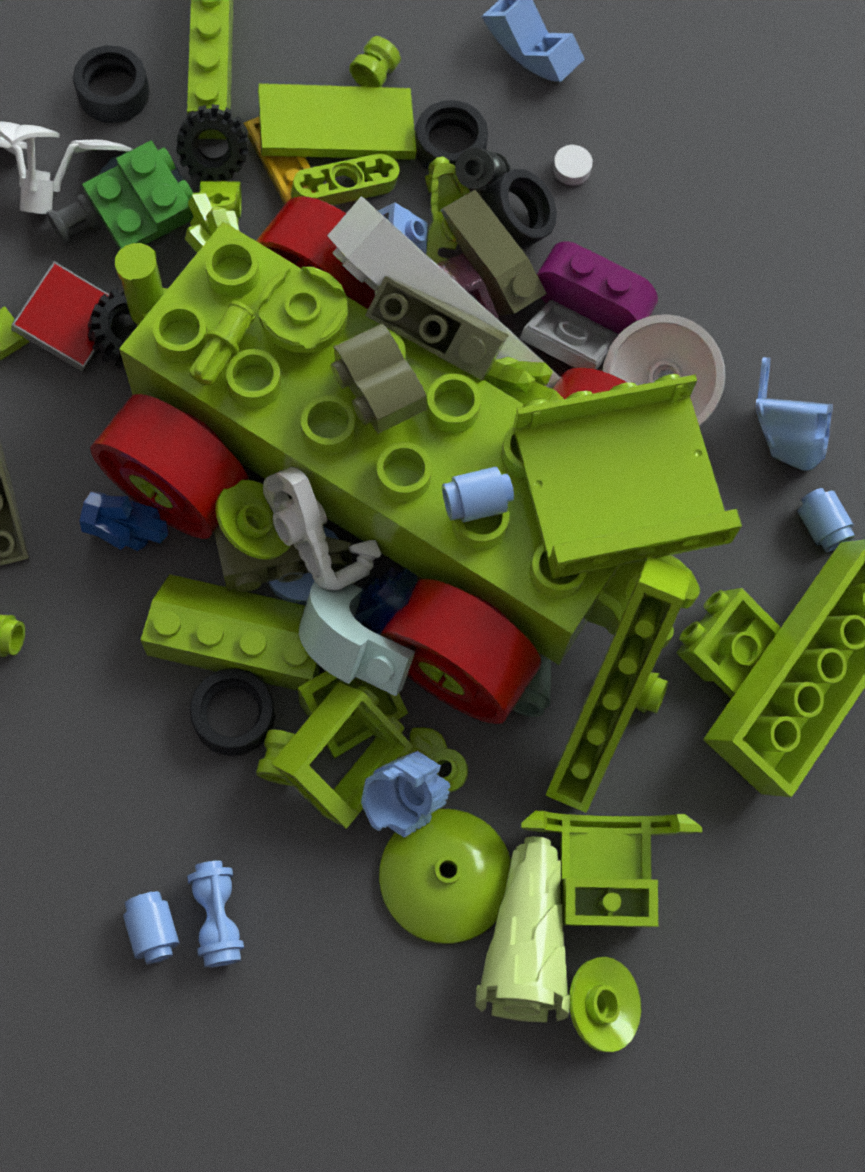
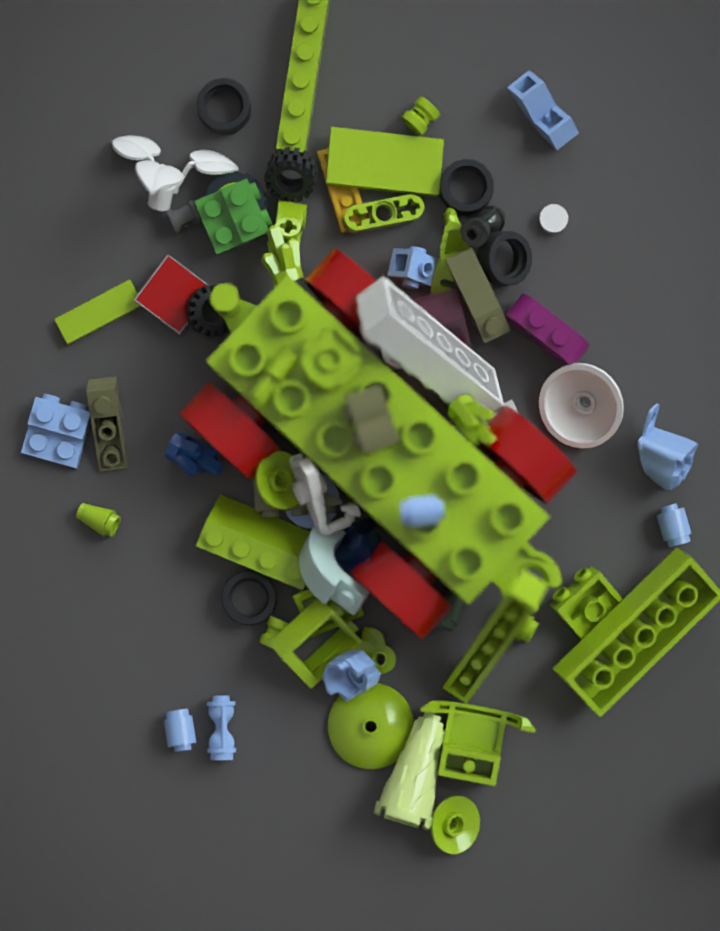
camera: 20 degrees right, 15 degrees up
(437, 327) = (421, 380): olive slope -> none
(568, 336) = (522, 364): light grey tile -> none
(621, 476) = (518, 510): lime panel -> none

